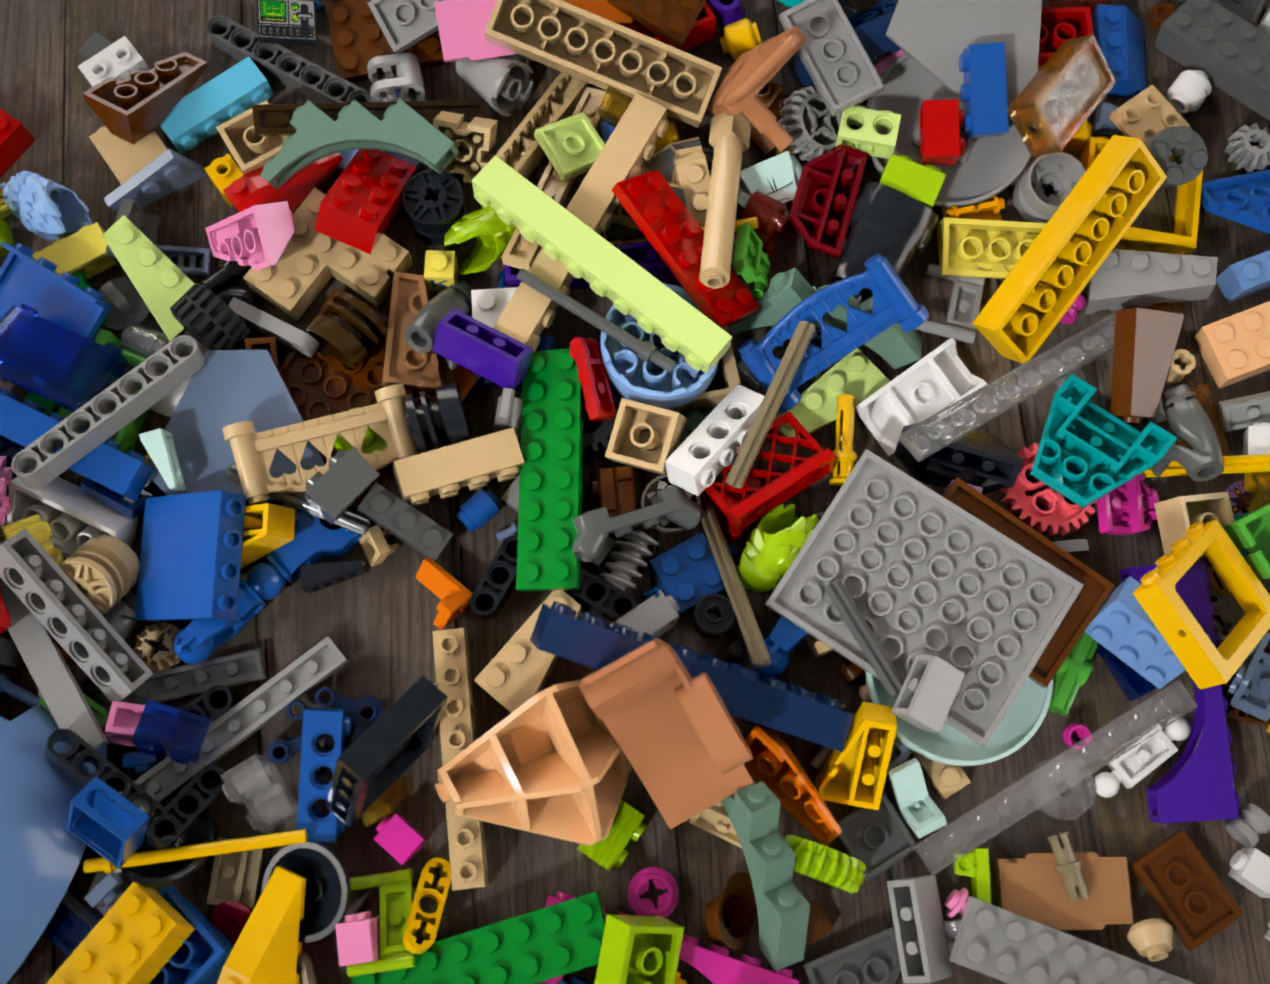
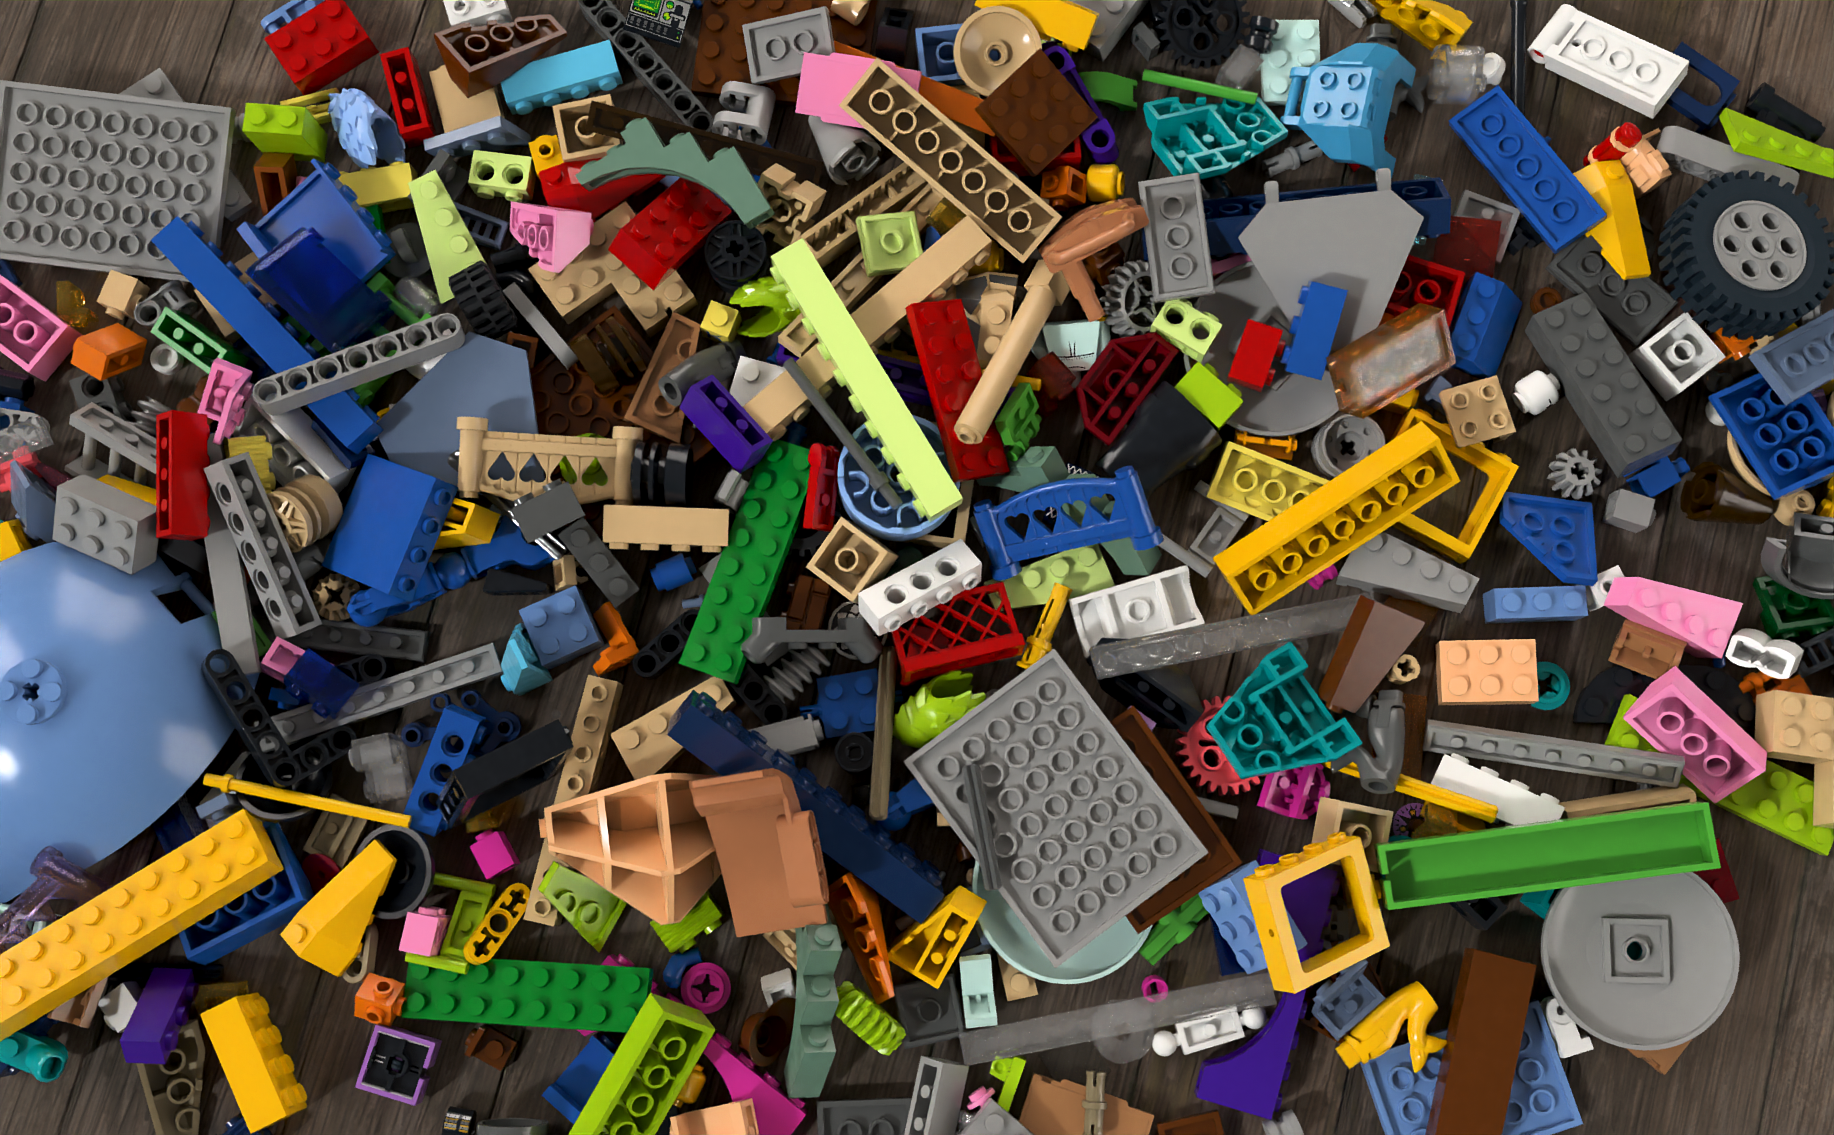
camera: 20 degrees right, 5 degrees up
(75, 164) = (408, 96): none -> red brick
(107, 822) = (236, 749): blue piece -> none
(163, 452) = (396, 418): light aqua slope -> none
(189, 201) = (505, 169): none -> yellowish green brick
(364, 645) = (521, 664): none -> medium azure wedge
(389, 597) = (561, 627): none -> medium blue brick
(506, 853) = (582, 903): none -> lime wing
(617, 882) = (678, 962): none -> blue arm
(710, 47) = (1064, 187): none -> orange brick
(722, 866) = (778, 986): none -> white slope
(770, 405) = (980, 572): dark tan axle -> none
(818, 923) = (842, 1068): reddish brown plate -> none
(928, 693) = (1018, 901): light grey brick -> none
(1188, 153) = (1493, 469): dark grey brick -> none

